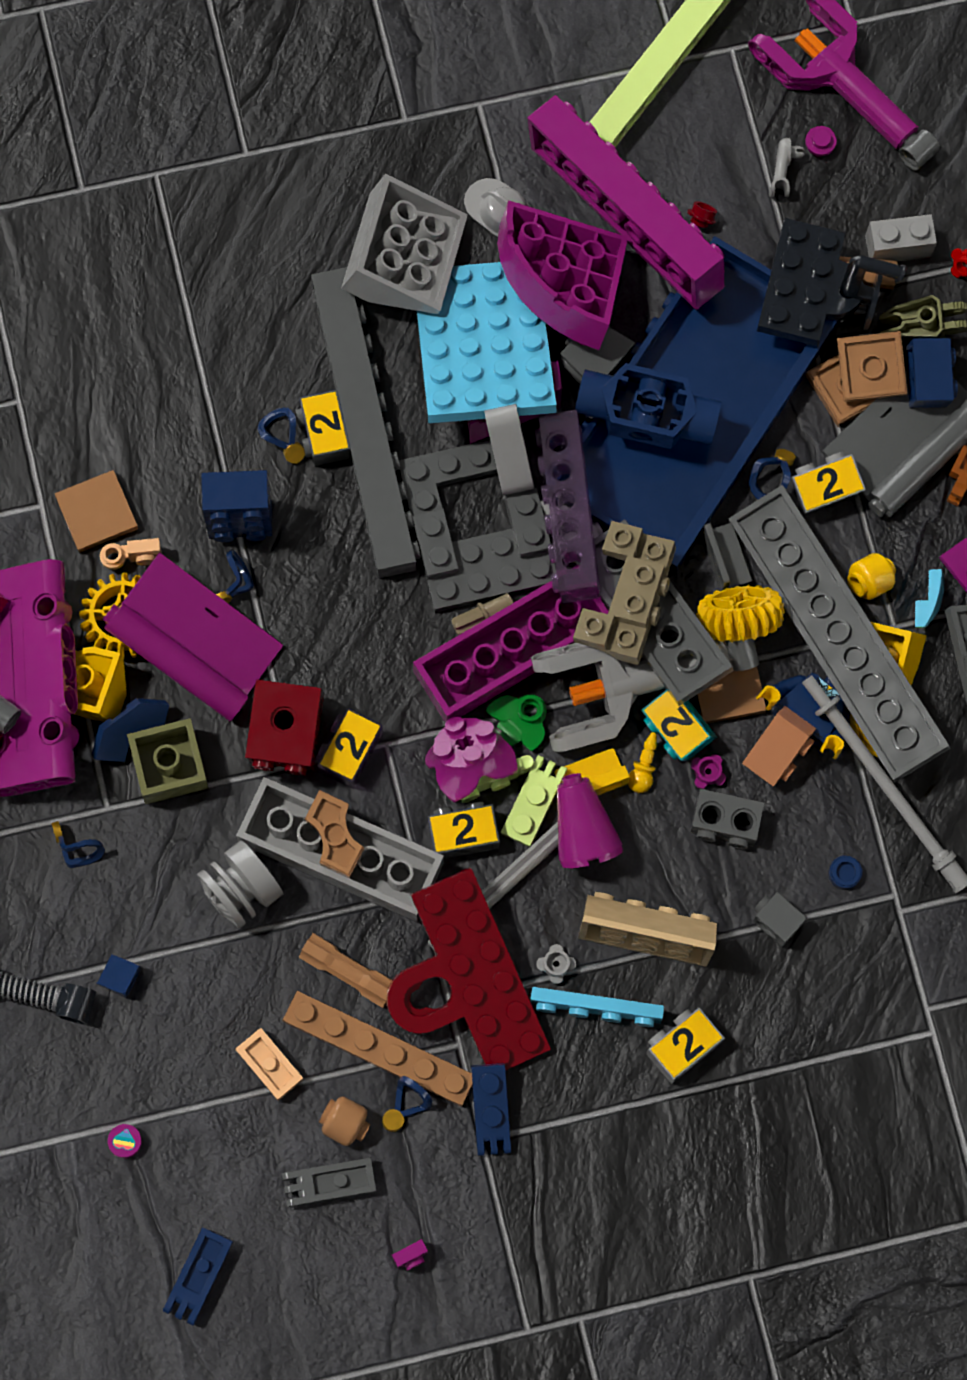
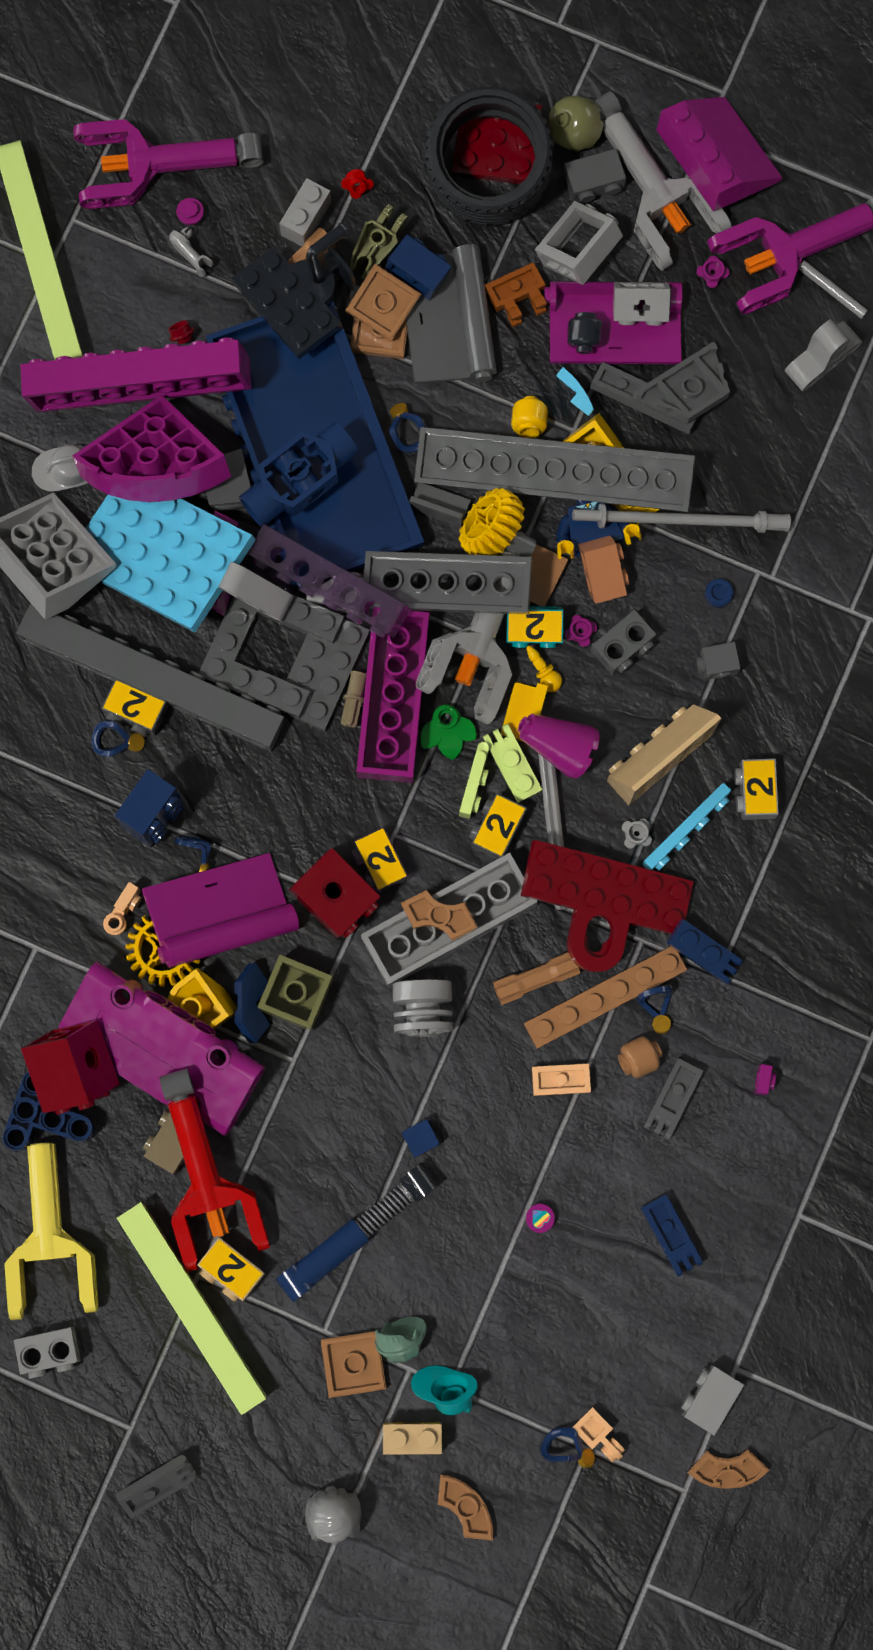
camera: 50 degrees left, 5 degrees up
(82, 861) = (304, 1111): dark blue piece -> none
(96, 511) = (71, 911): medium nougat tile -> none
(467, 752) = (459, 796): magenta brick -> none
(636, 597) = (425, 573): dark tan bracket -> none
(828, 482) = (442, 395): yellow brick -> none

